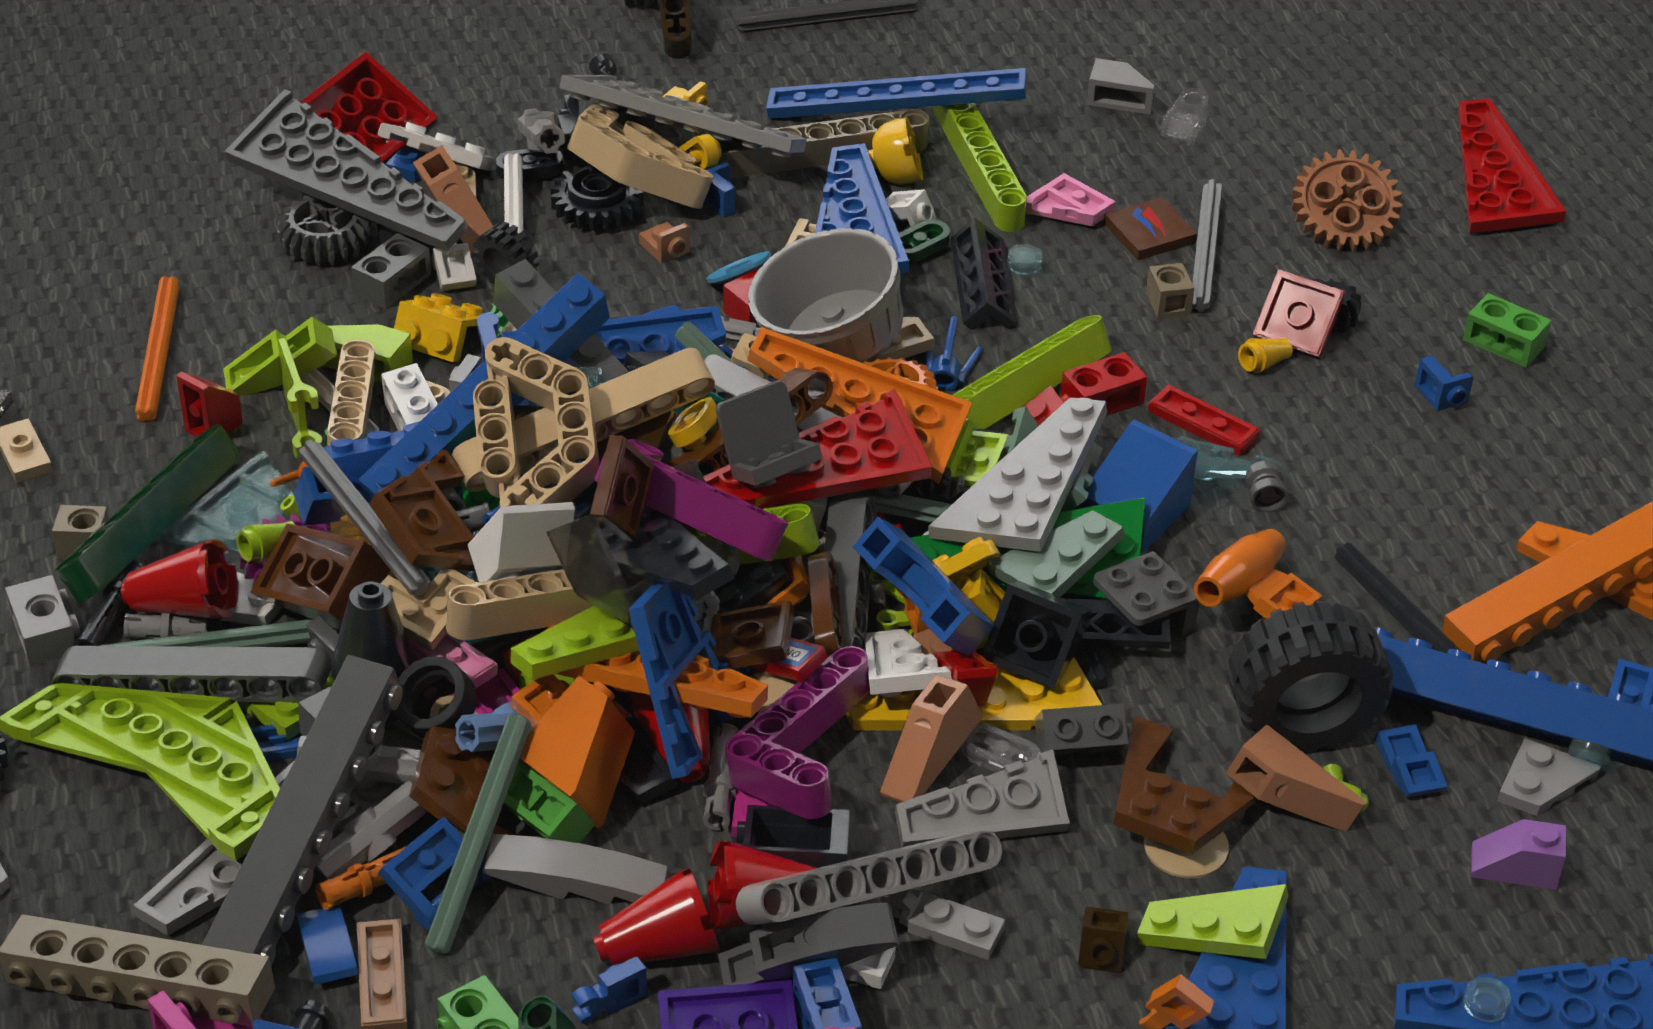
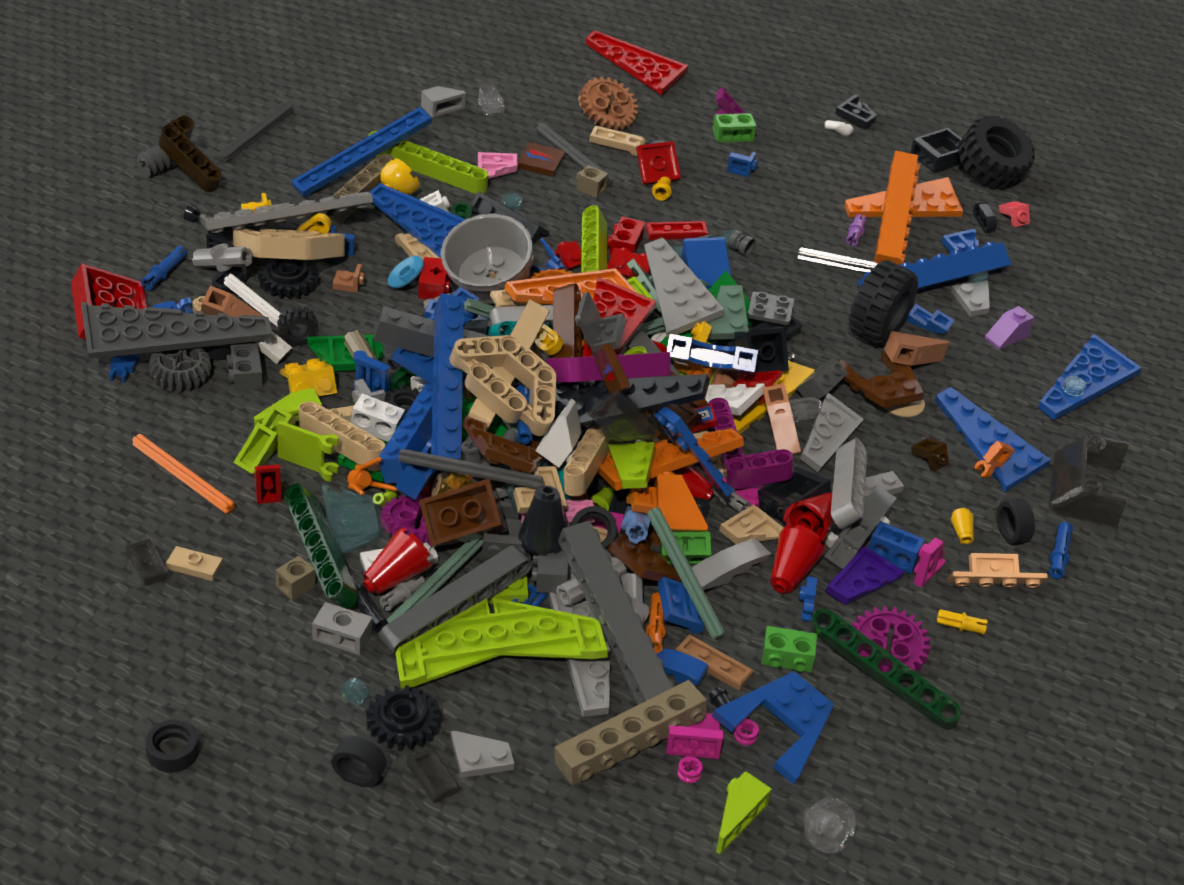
camera: 50 degrees left, 0 degrees up
(258, 540) = (412, 517): lime cone -> none
(274, 195) = (122, 365): none -> blue plate
(416, 137) = (175, 292): white wing -> none
(465, 114) = (160, 271): none -> blue pin
(683, 844) = (749, 525): none -> tan wing
(989, 357) = (570, 254): none -> red bracket
(1217, 923) = (962, 419): lime wing -> none
(1249, 570) = (796, 284): orange plate -> none
(1296, 253) = (616, 139): none -> tan plate
(1489, 572) = (856, 230): none -> medium lavender pin
(1541, 293) = (727, 103): none -> magenta slope

